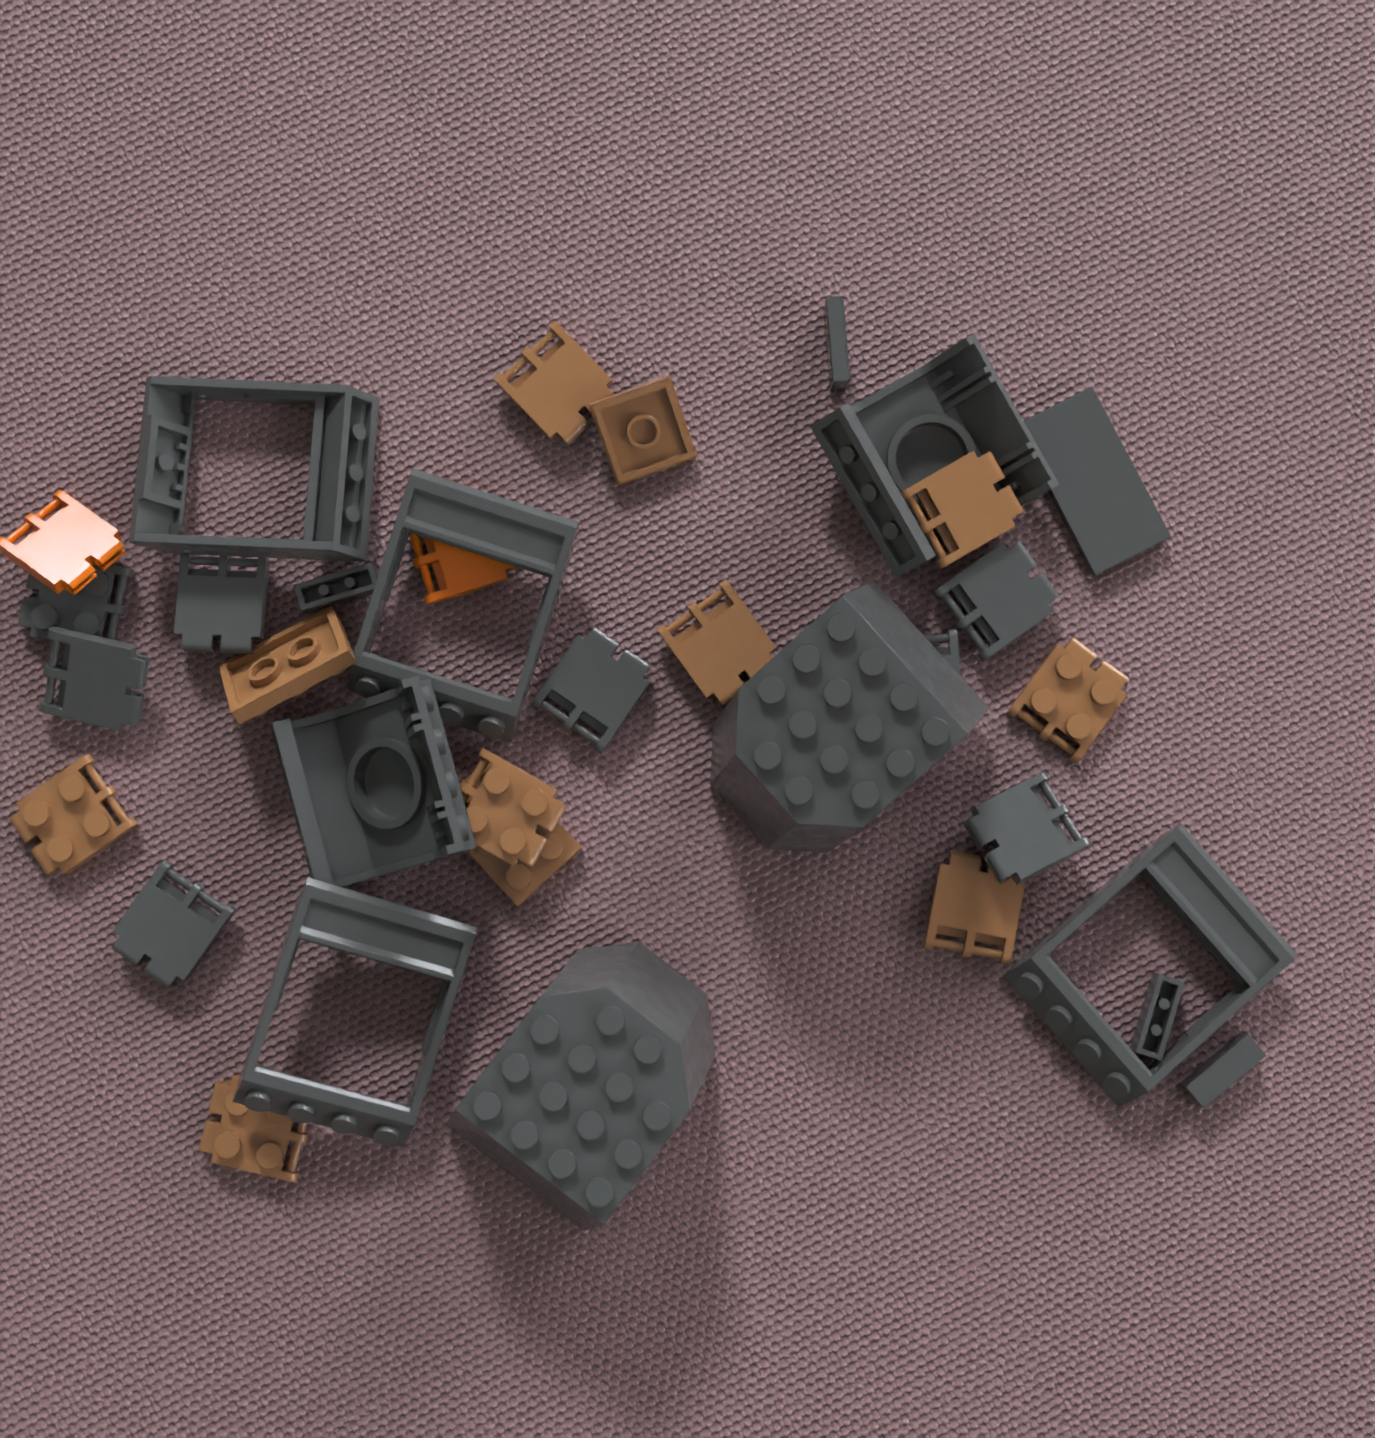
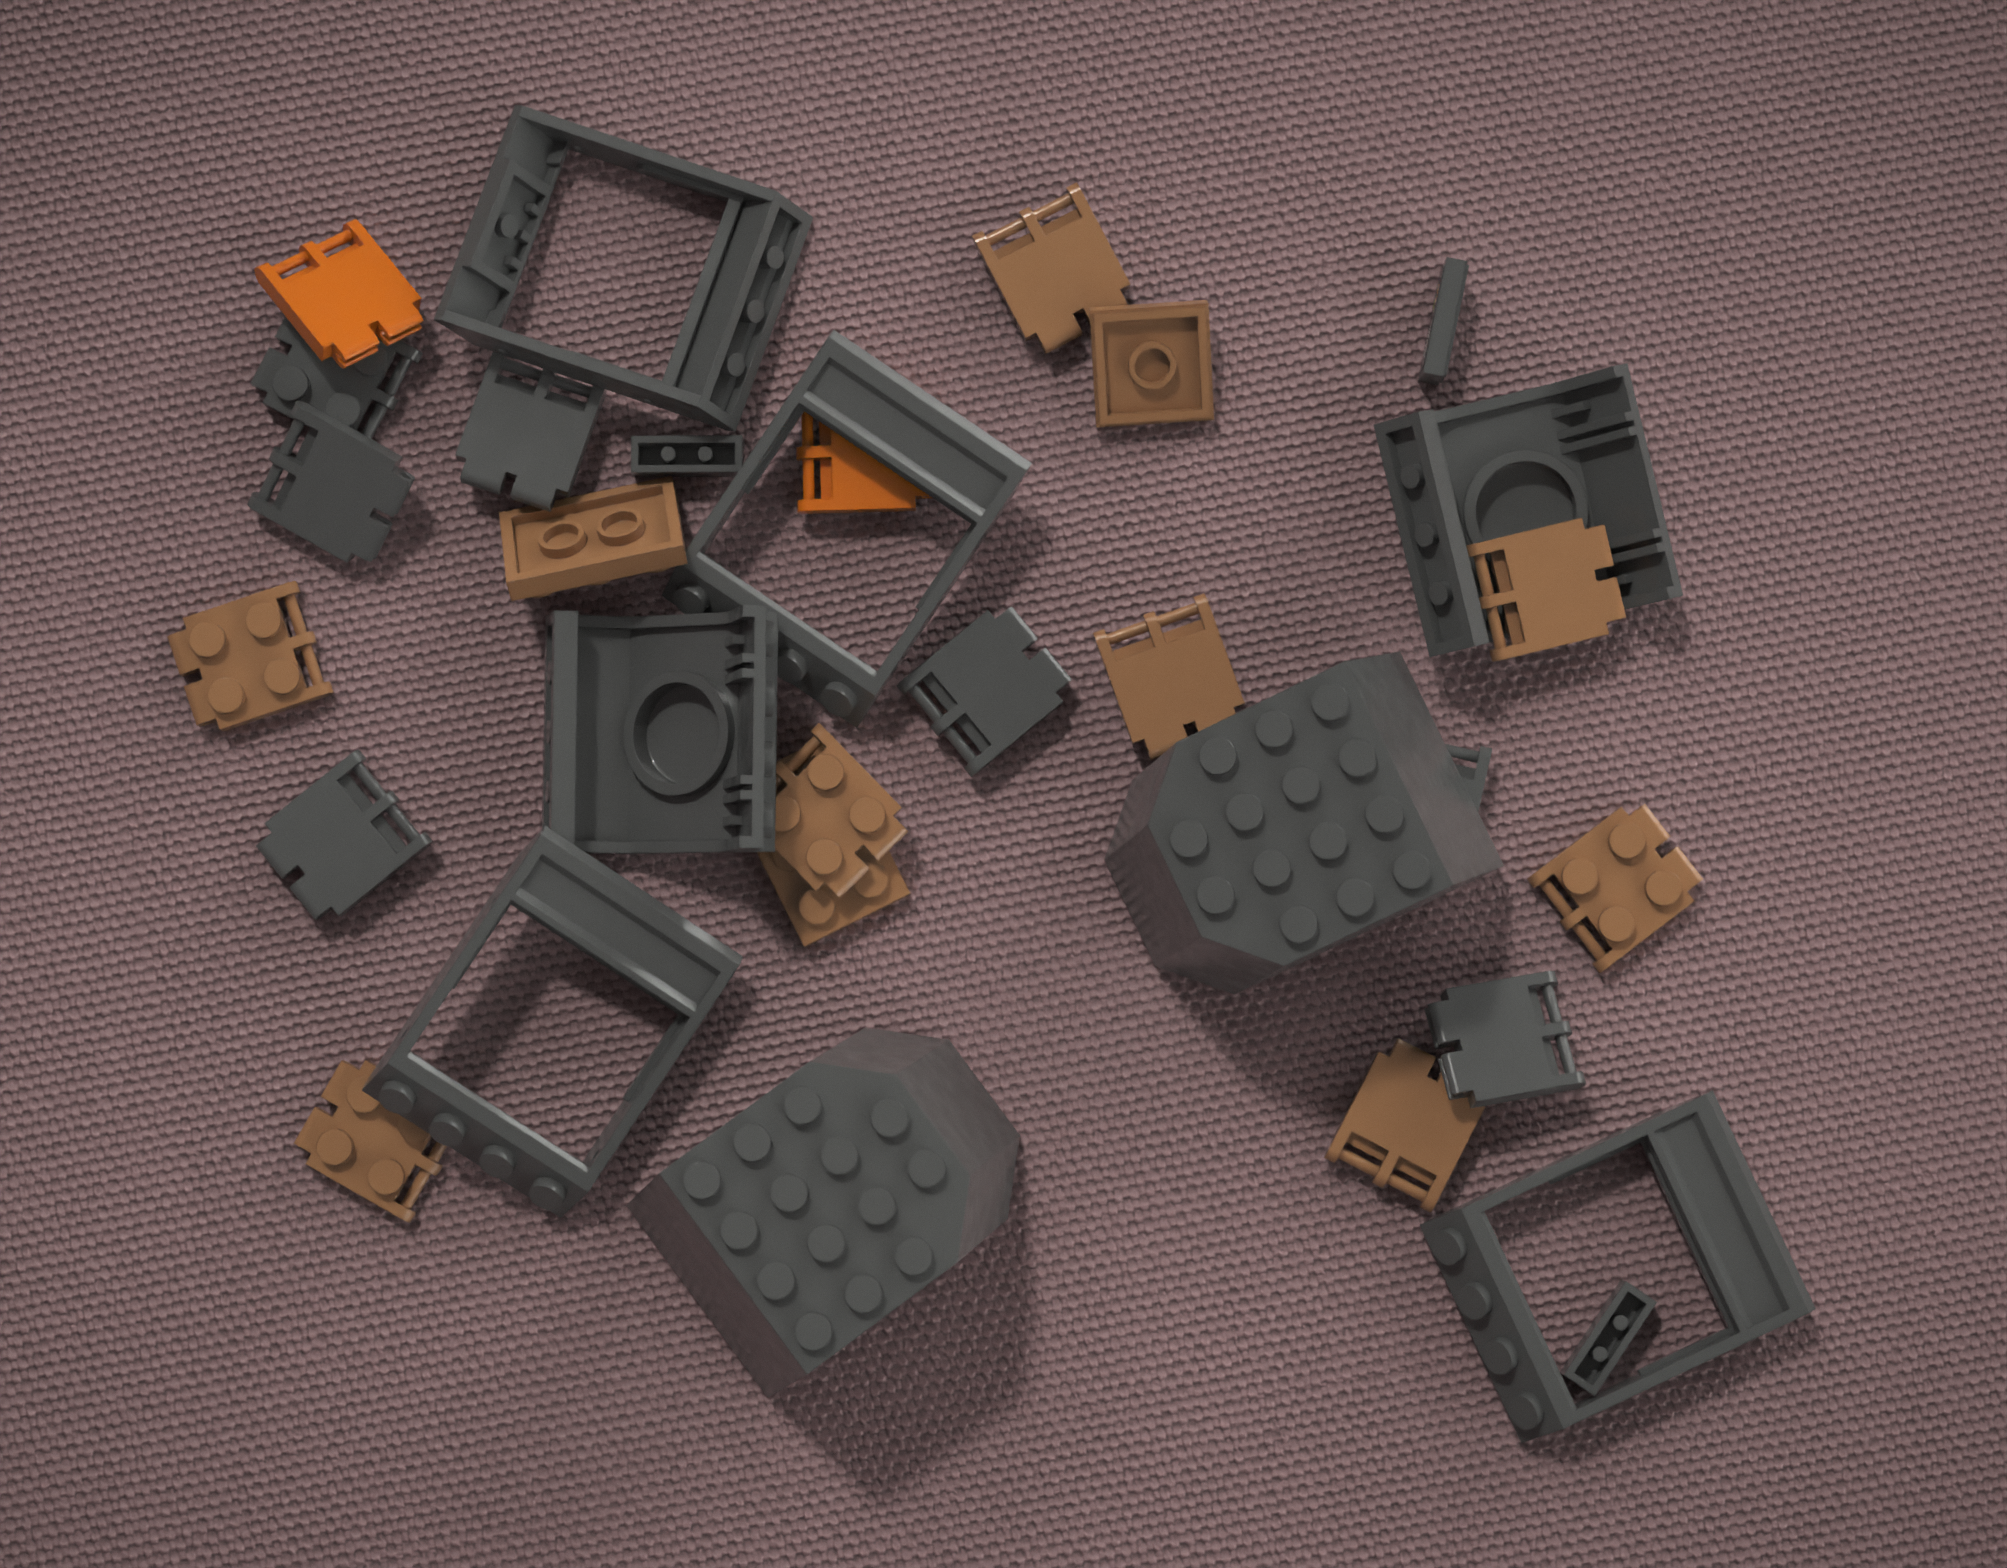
camera: 20 degrees right, 0 degrees up
(998, 597) = (1560, 722): dark grey plate -> none
(1098, 484) = (1736, 606): dark grey tile -> none
(1222, 1069) = (1673, 1433): dark grey piece -> none

